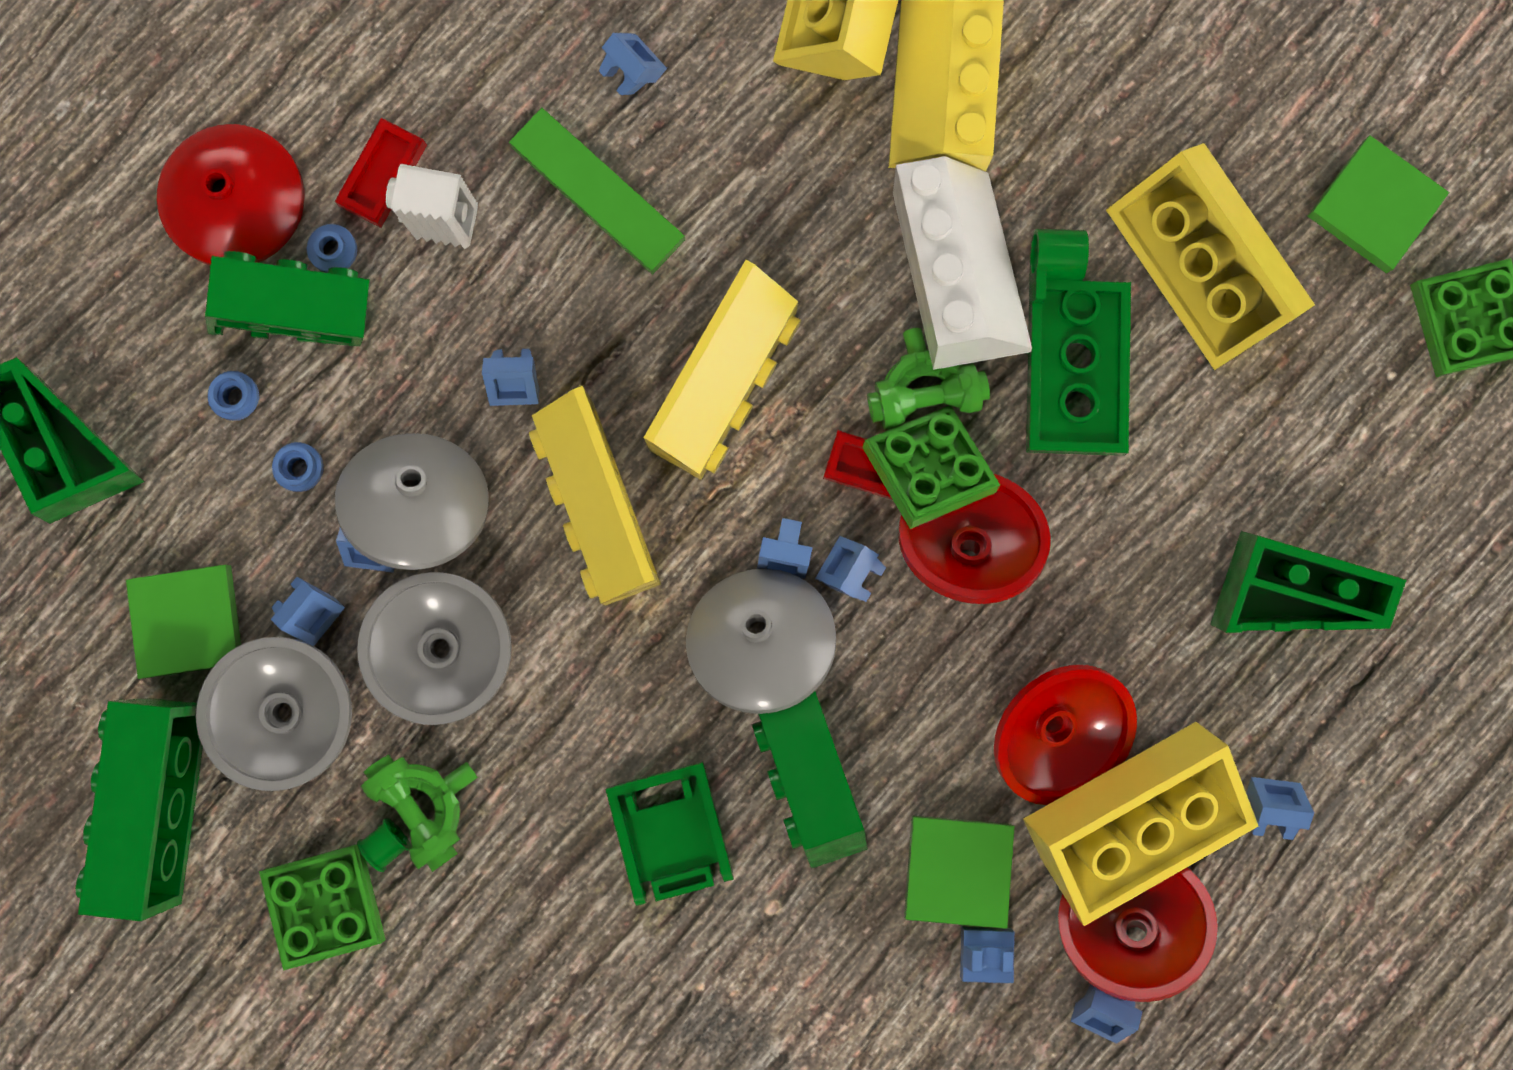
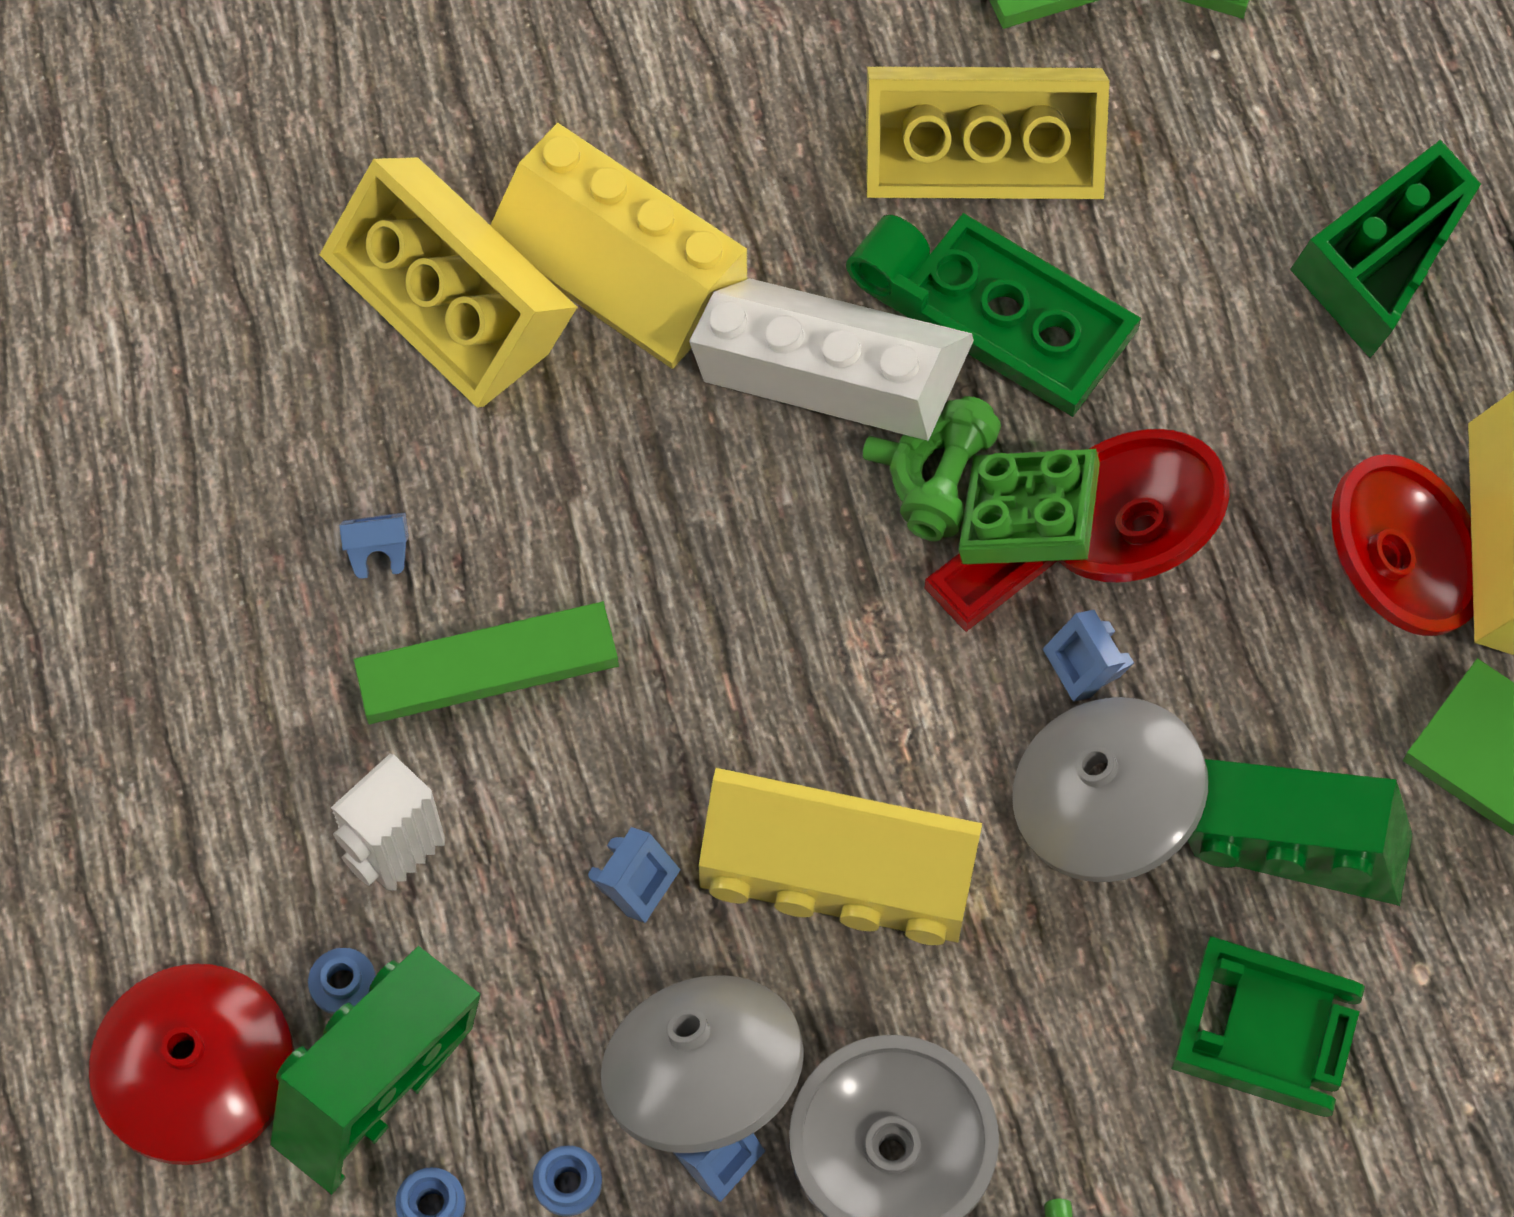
camera: 55 degrees left, 20 degrees down
(367, 183) = (293, 877): red tile -> none
(722, 373) = (788, 648): light yellow slope -> none
(785, 552) = (1025, 705): medium blue tile -> none

